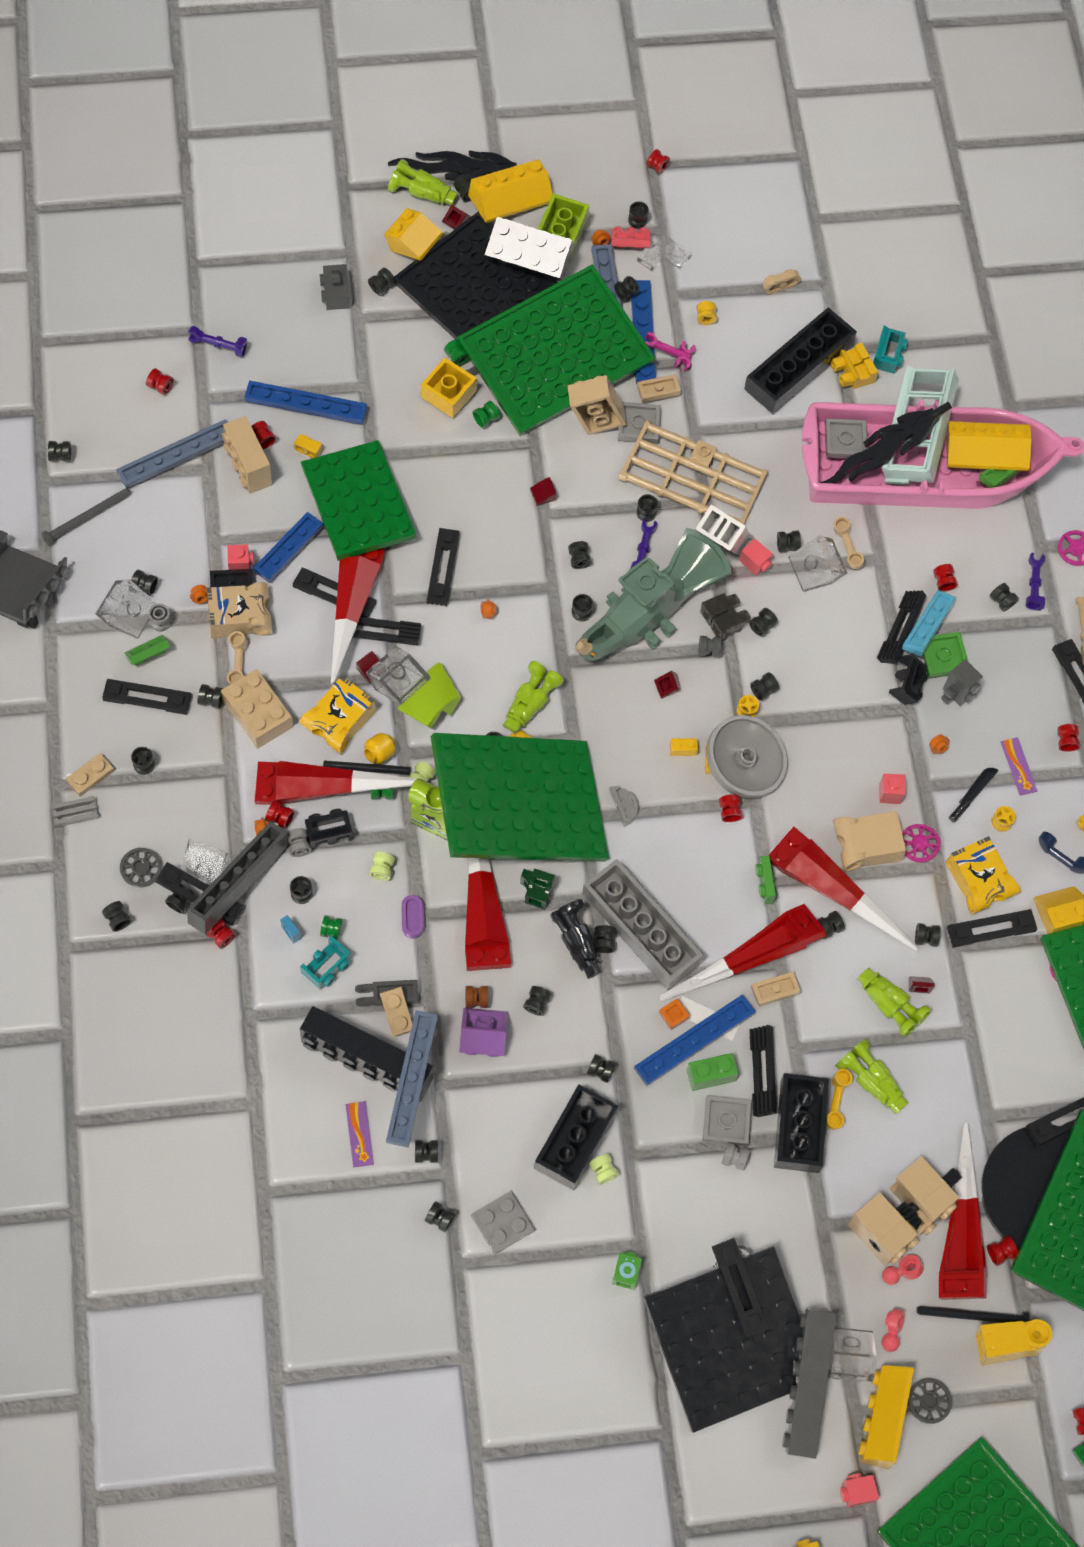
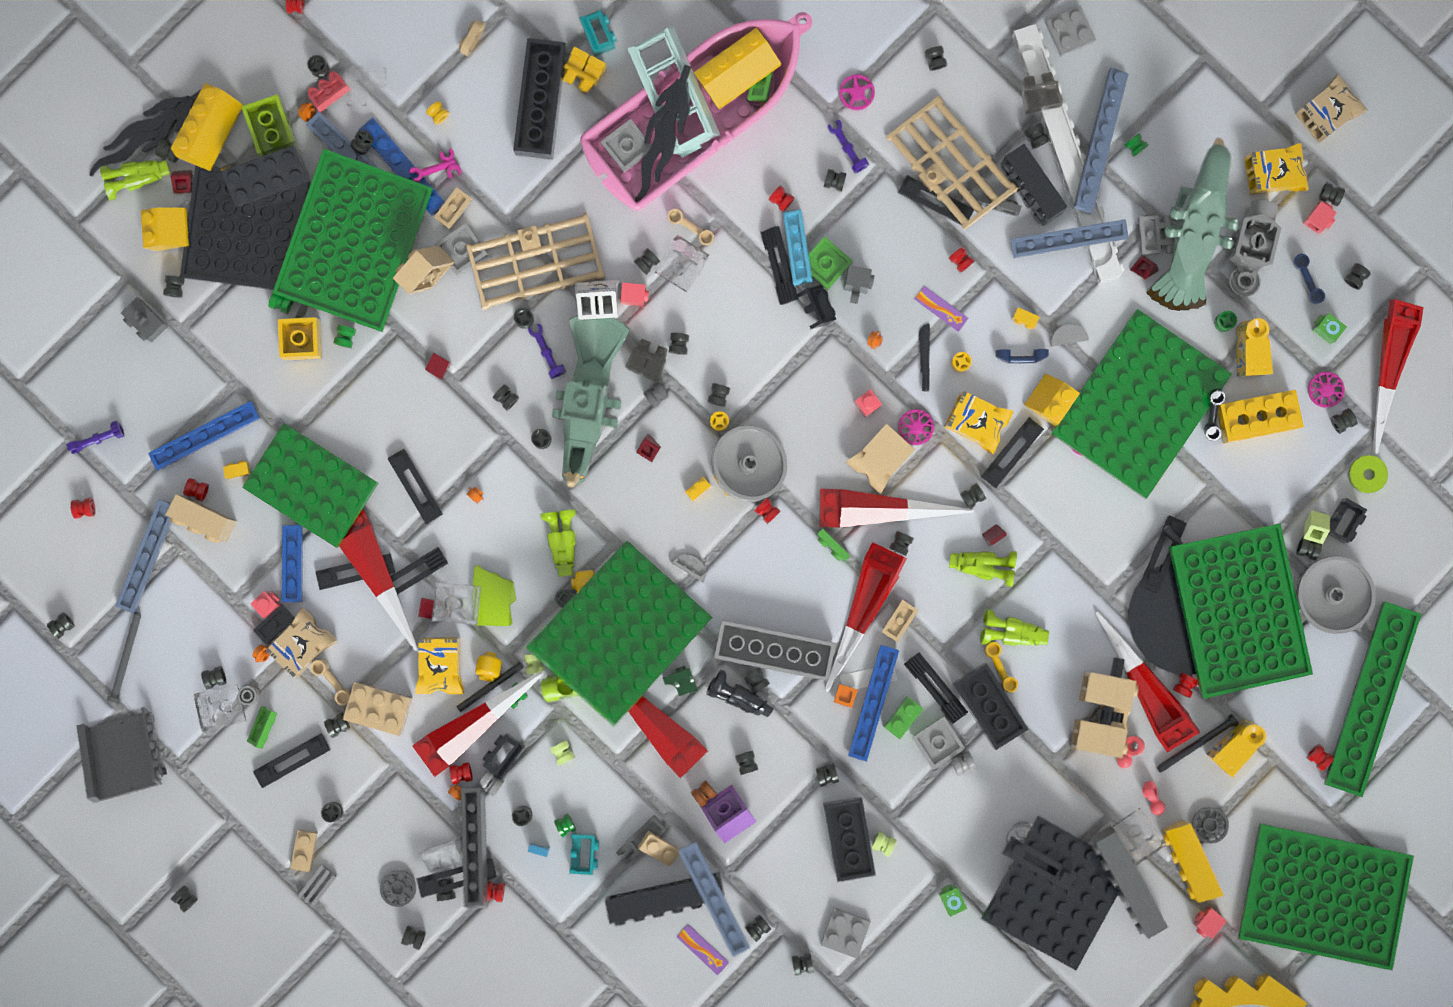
camera: 30 degrees left, 20 degrees up
(412, 916) = (612, 770): medium lavender tile -> none

